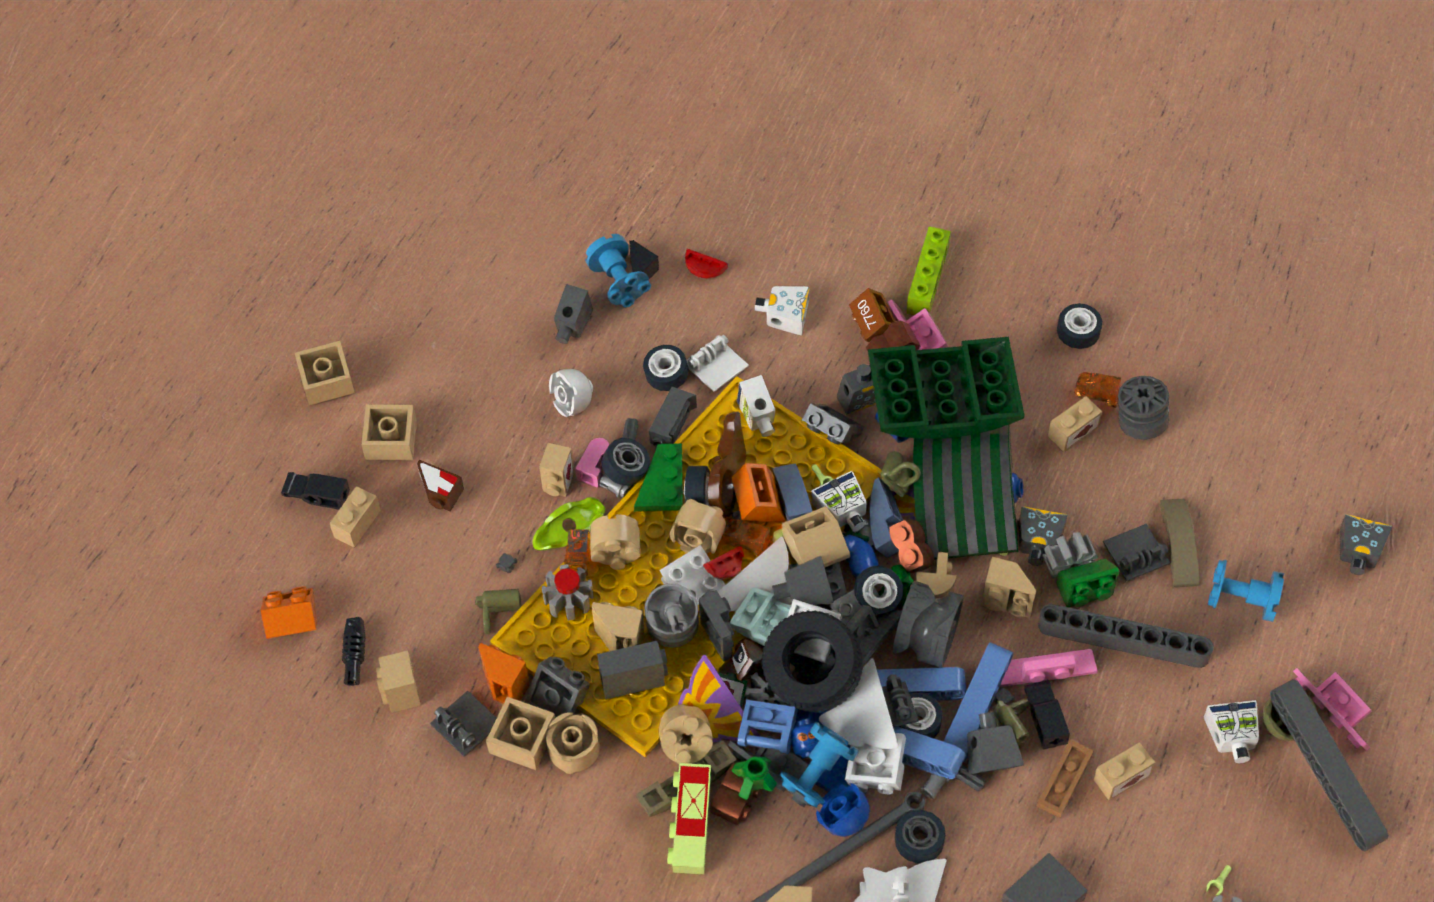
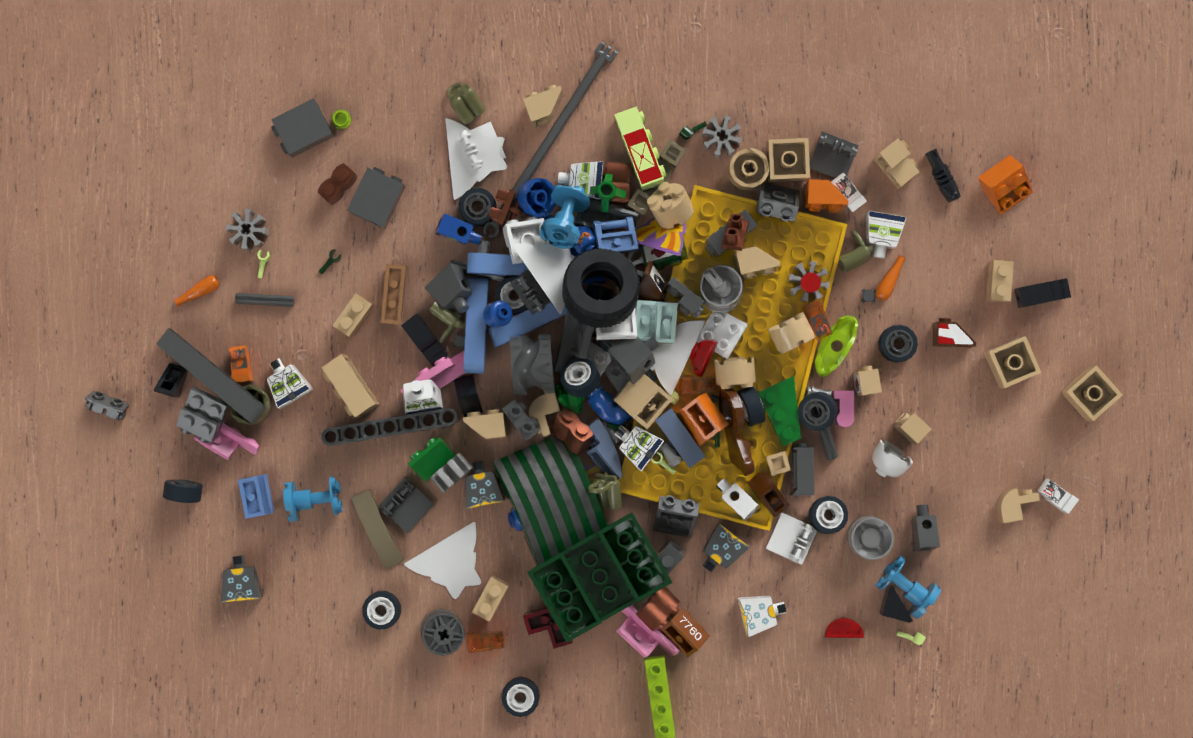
camera: 155 degrees right, 30 degrees up
(415, 298) = (1057, 496): none -> white leg
(452, 618) = (883, 231): none -> white torso
(466, 311) = (1009, 504): none -> tan brick
(470, 670) = (850, 192): none -> white leg
(476, 566) = (889, 281): none -> orange piece
(501, 488) = (908, 339): none -> wheel
(532, 409) = (912, 427): none -> tan brick
(597, 800) = (727, 134): none -> light grey gear
(622, 817) = (686, 132): none -> dark green hand
(629, 644) = (735, 232): none -> copper hips
(632, 230) = (918, 638): none -> yellowish green hand
(633, 327) = (870, 537): none -> light grey wheel
(695, 429) = (778, 463): none -> tan plate
(720, 403) = (768, 493): none -> reddish brown slope
(775, 815) = (583, 175): none -> white torso
(794, 379) = (723, 548): none -> dark grey torso
(809, 477) = (670, 454): none -> light grey pin
(879, 821) = (501, 215): none -> copper hips
(947, 692) = (497, 314): none -> blue head
(960, 816) = (448, 229): none -> blue torso
(967, 574) = (516, 413): none -> dark grey plate
(1018, 635) = (468, 395): none -> black slope
(1031, 378) = (541, 620): none -> dark red brick
(1076, 642) = (421, 397): none -> white torso
(1106, 481) = (450, 561): none -> white sticker
(1130, 849) = (329, 262): none -> dark green hand
(1157, 690) = (349, 386): none -> tan brick
(1204, 470) = (370, 612): none -> wheel
(1231, 837) = (267, 300): none -> dark grey axle
(1287, 771) = (240, 364): none -> orange leg
(1309, 881) = (200, 289): none -> orange piece
(1314, 625) = (256, 496): none -> medium blue plate
(1354, 722) = (202, 415): none -> dark grey plate
(1383, 783) = (171, 381): none -> black slope
(1404, 657) = (182, 491): none -> black wheel

